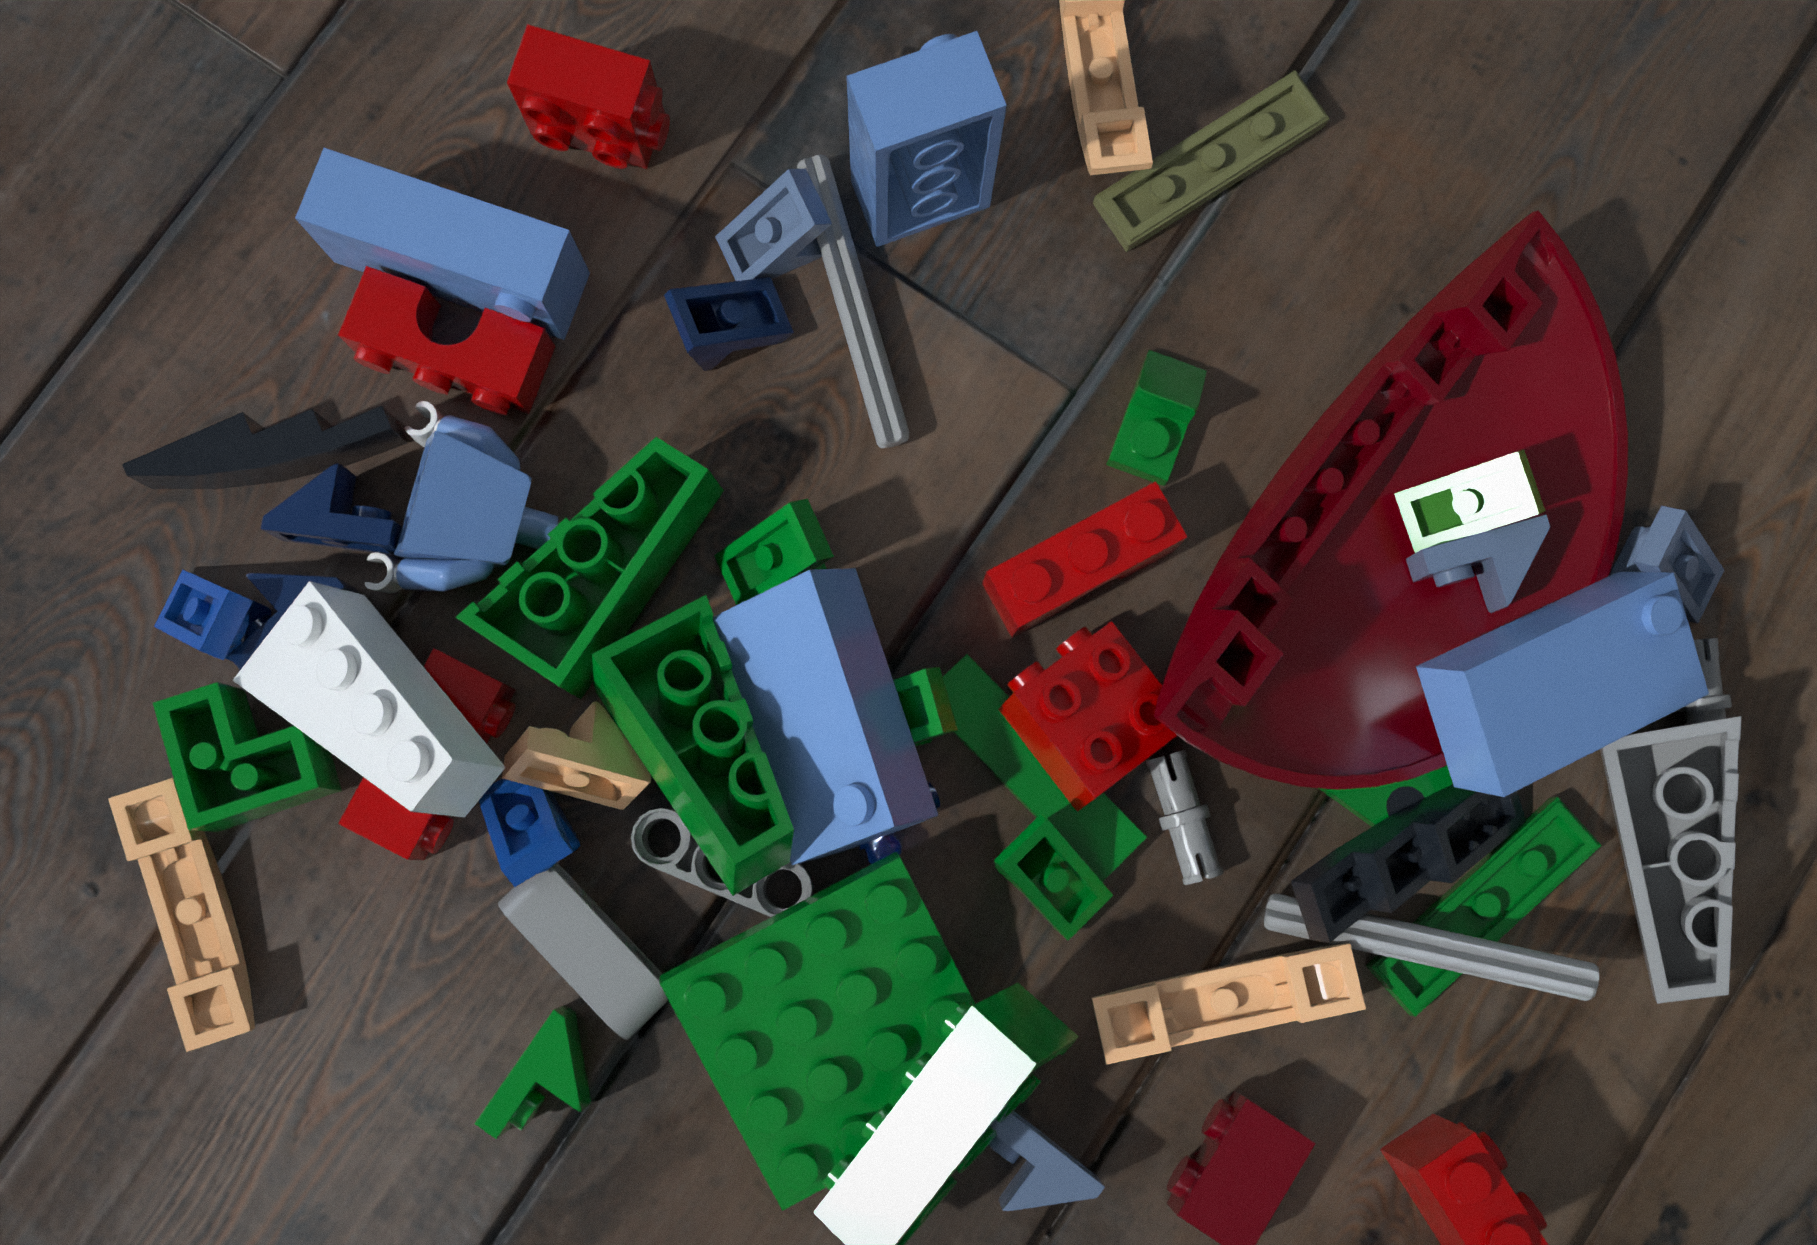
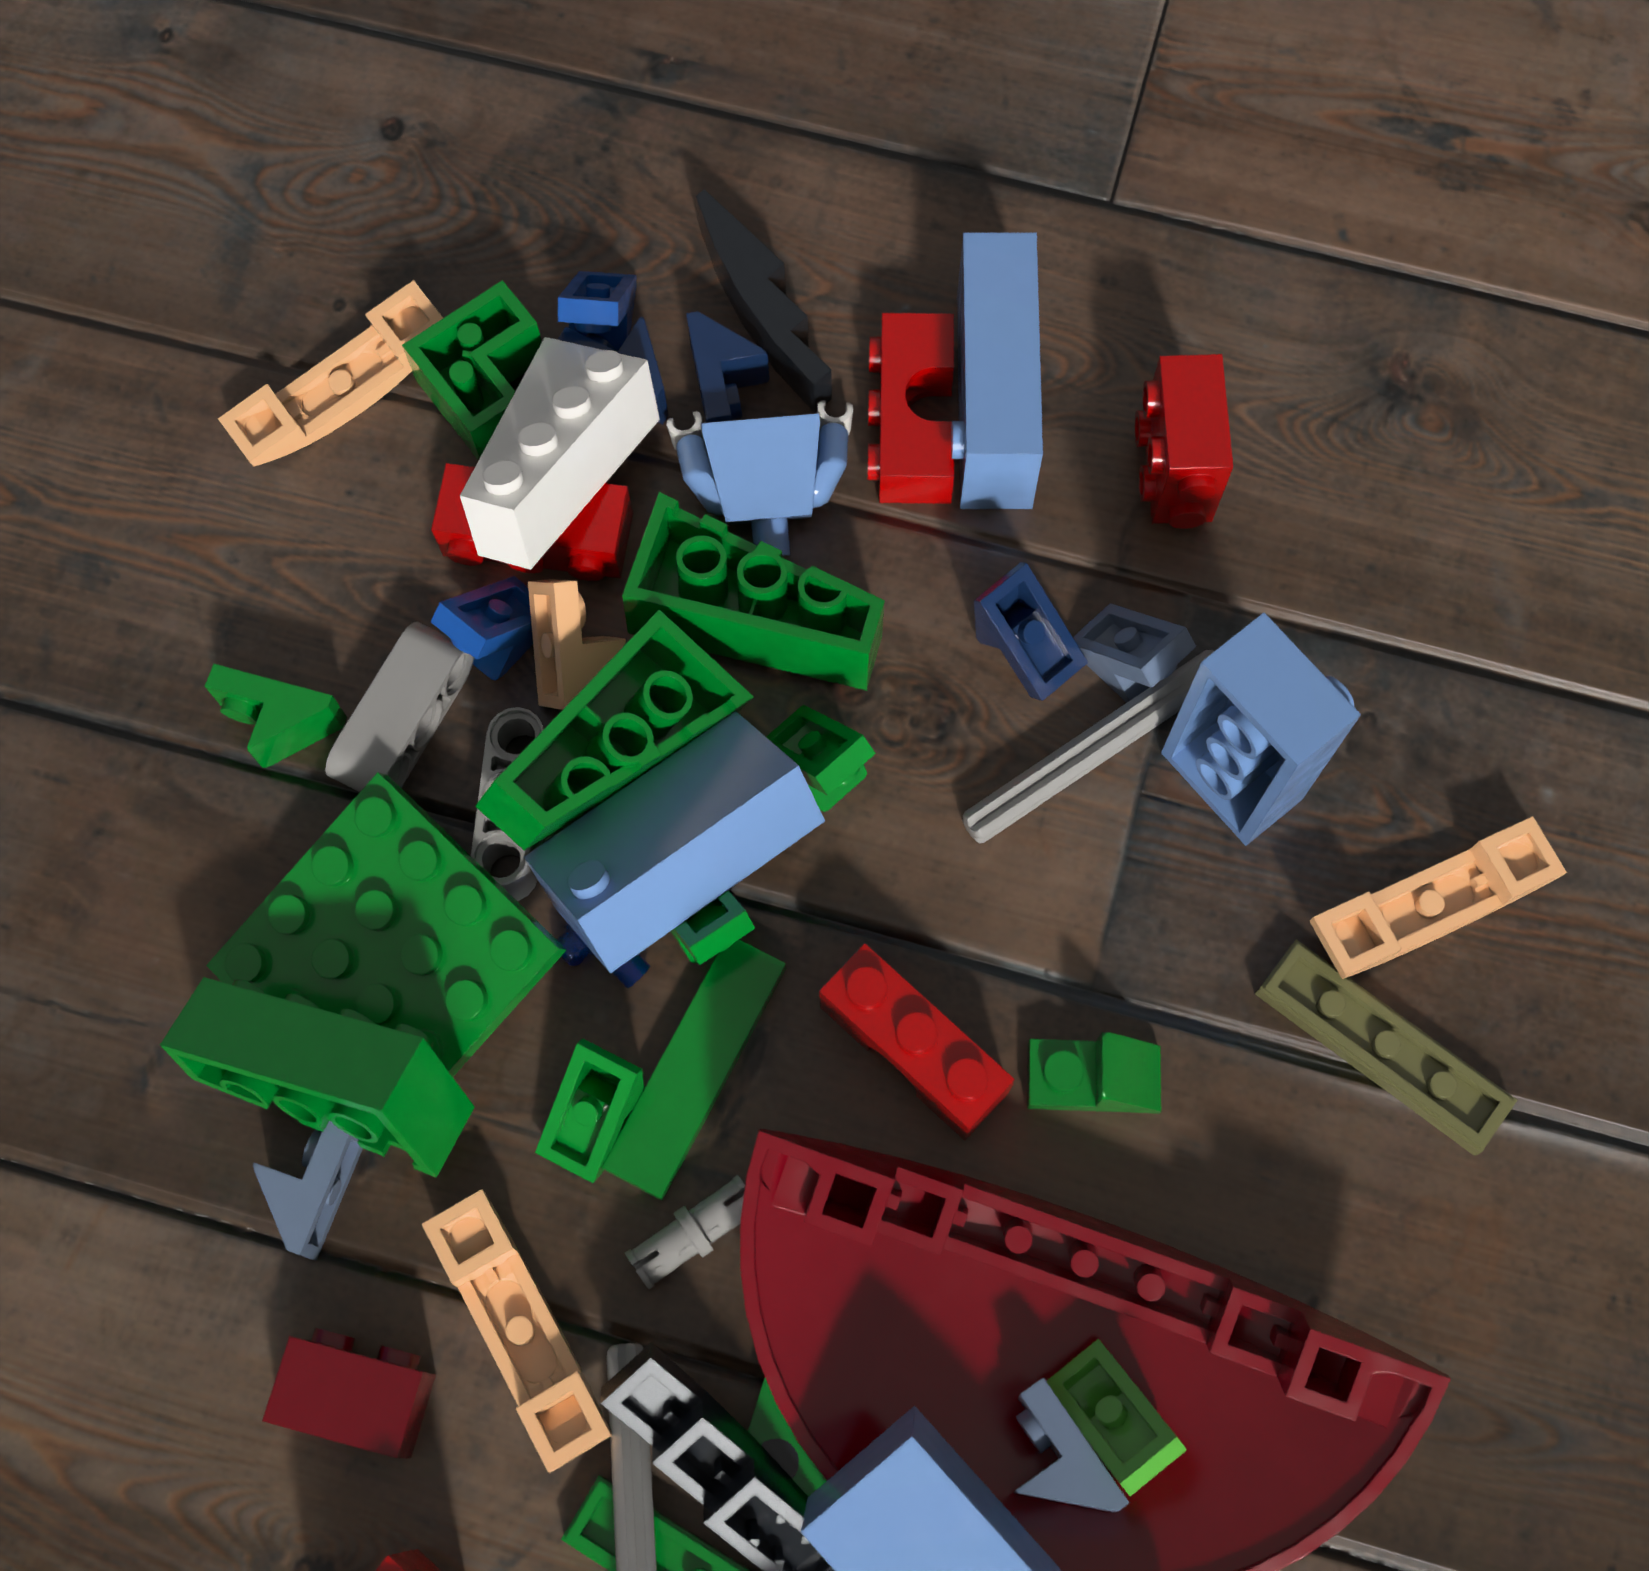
camera: 80 degrees right, 10 degrees down
(1088, 713) = (761, 1080): red brick -> none

